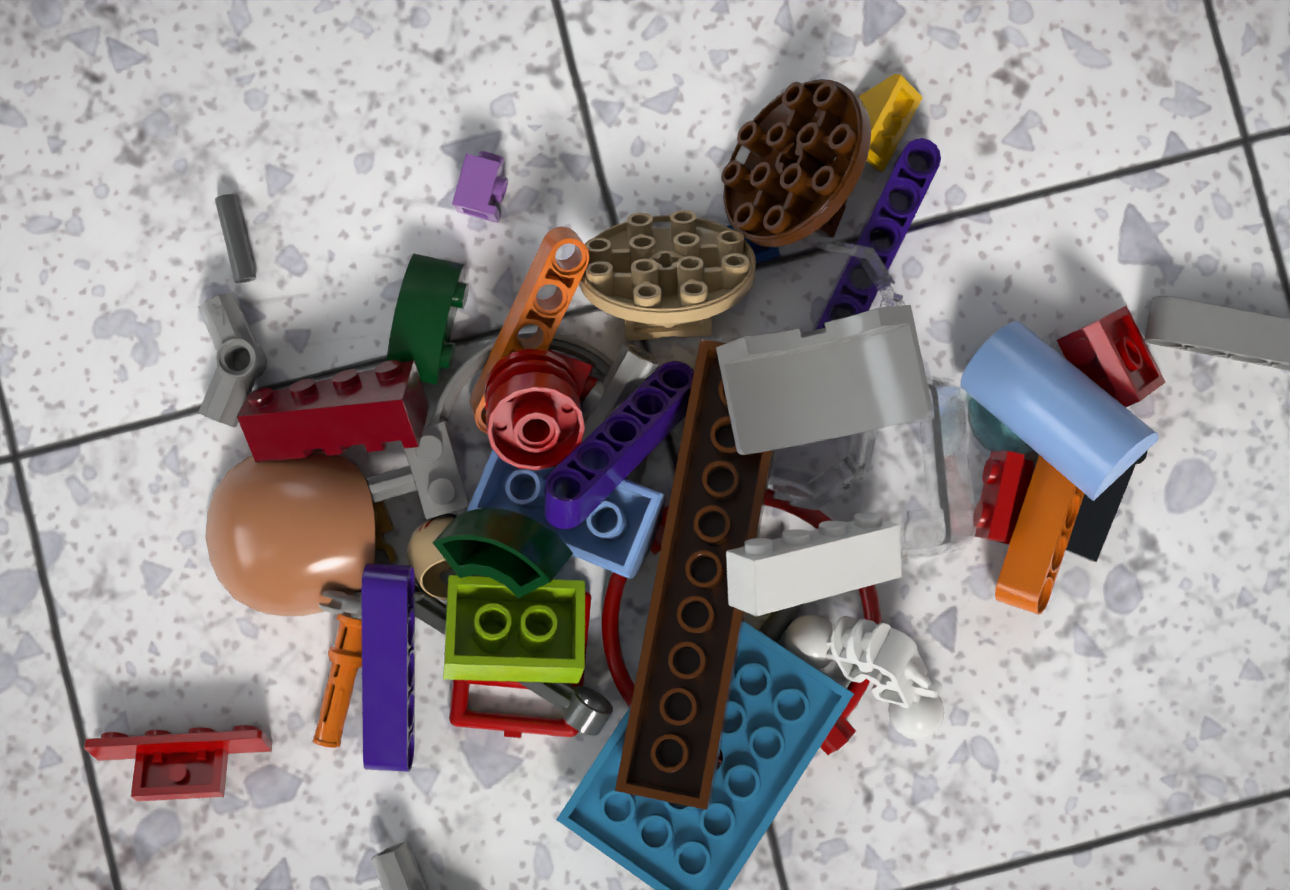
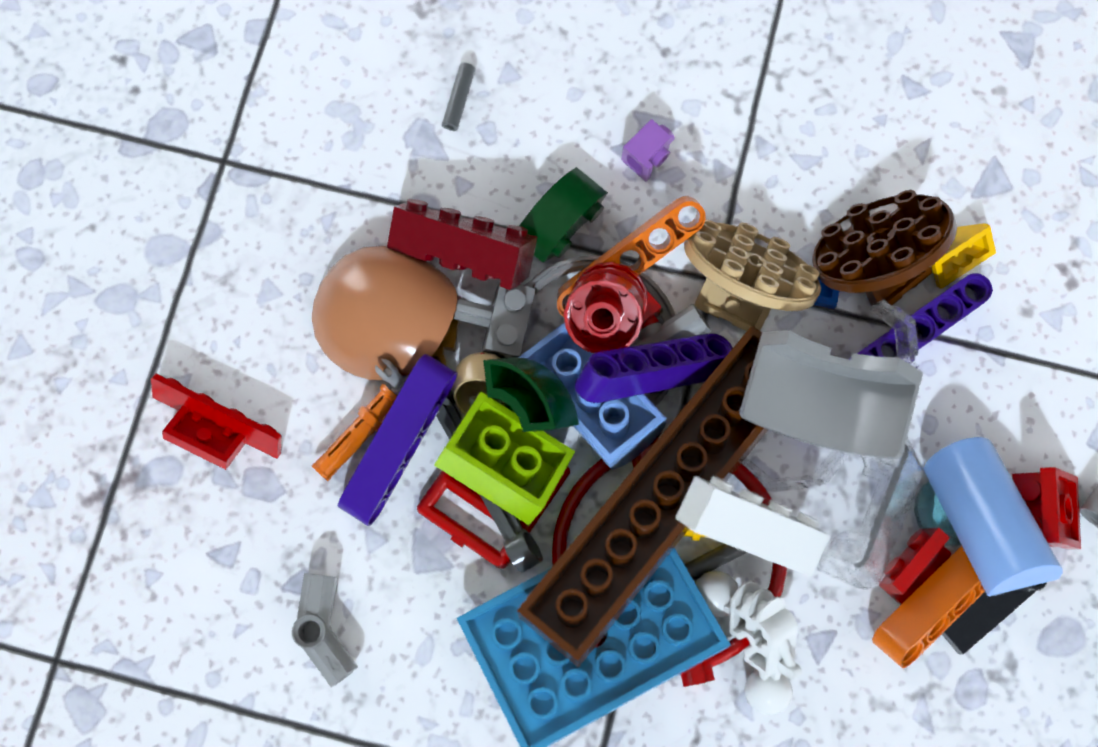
camera: 25 degrees right, 10 degrees down
(229, 334) = (418, 157): light grey piece -> none

